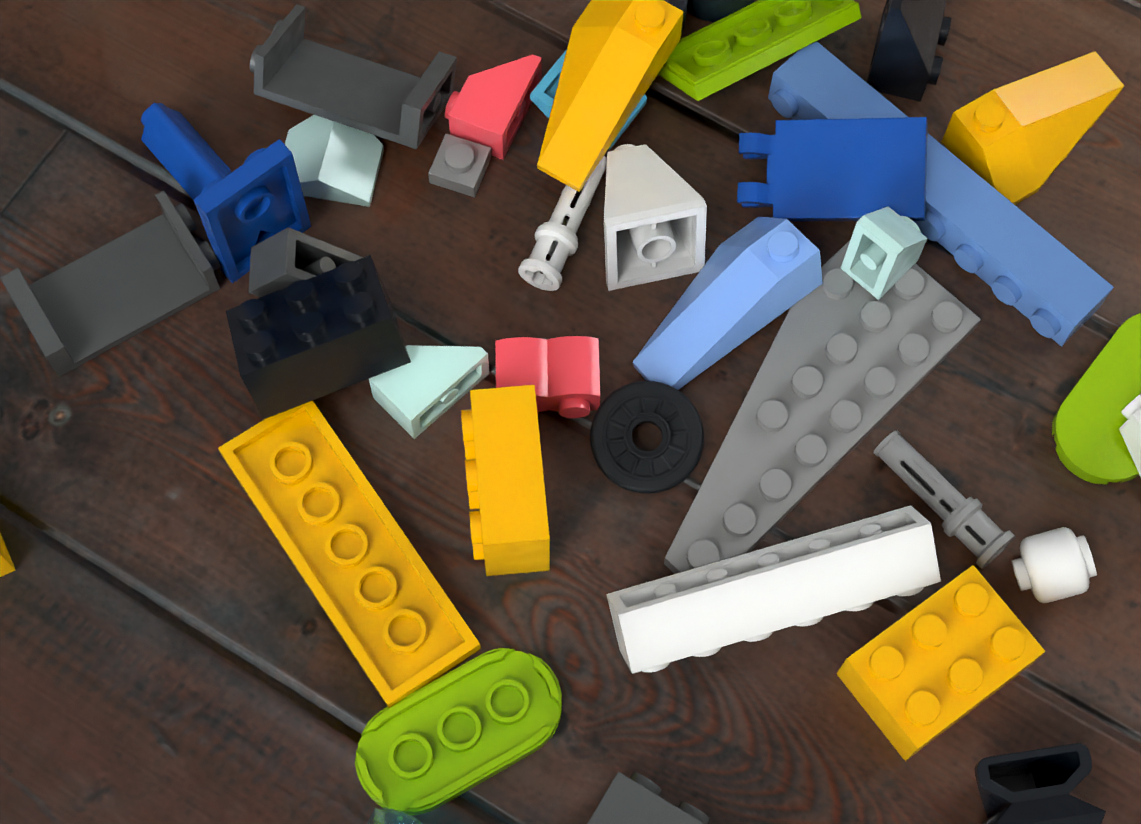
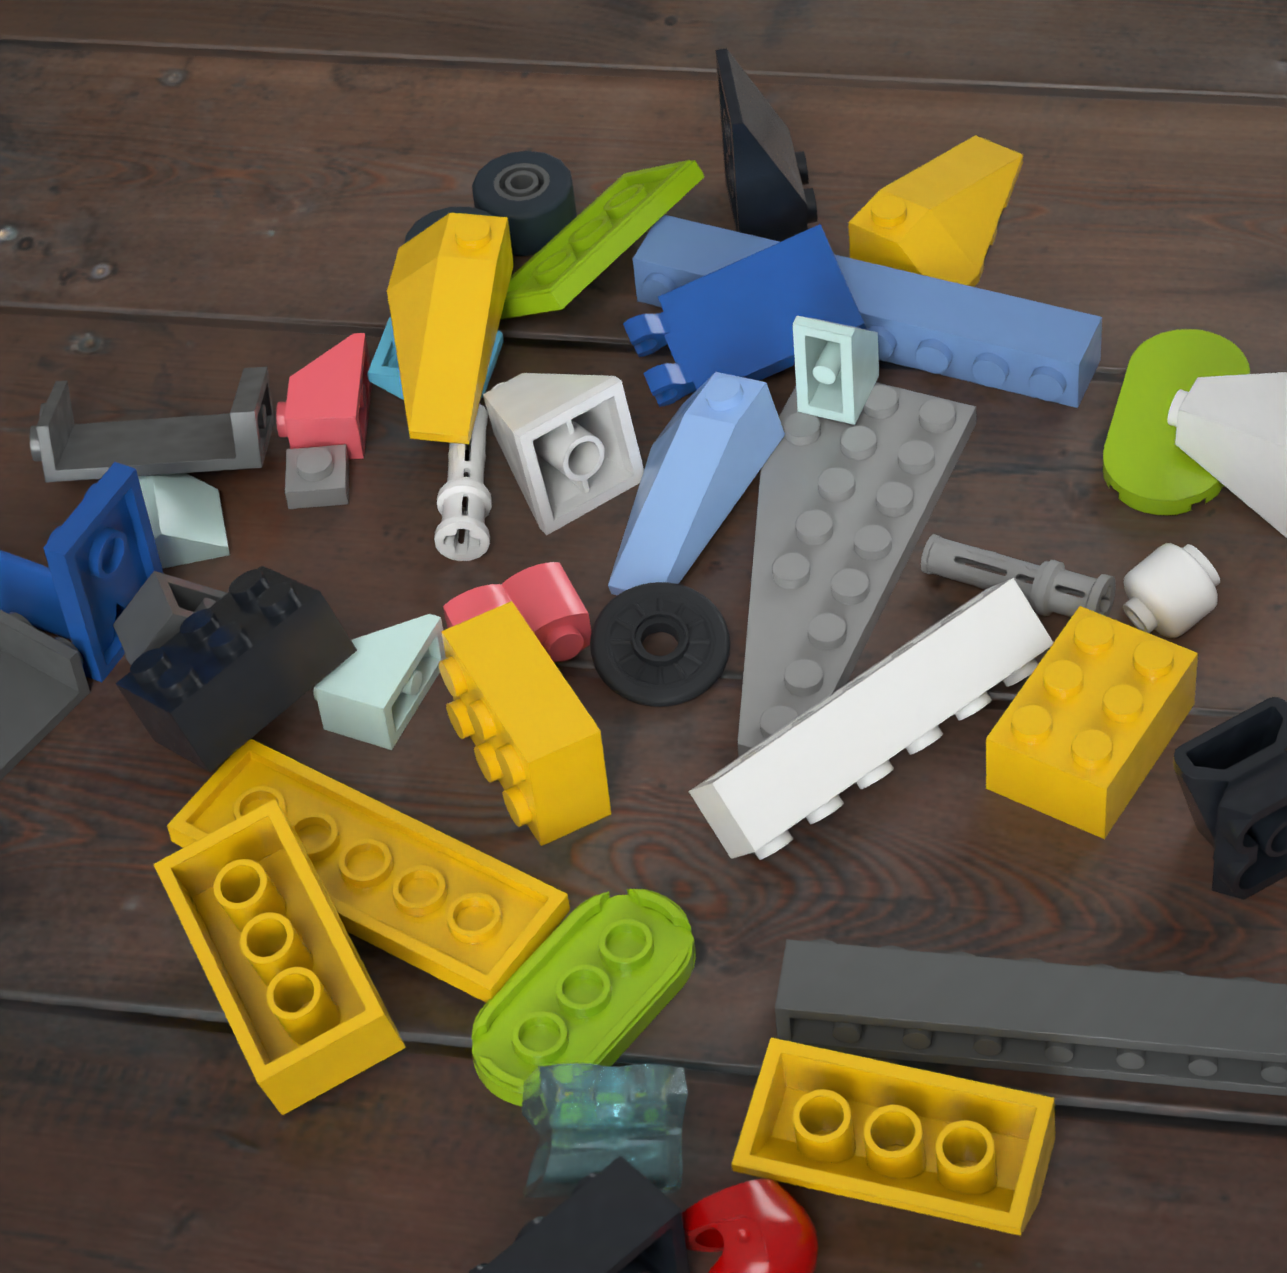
camera: 15 degrees left, 20 degrees down
(240, 616) = (278, 957): none -> yellow brick

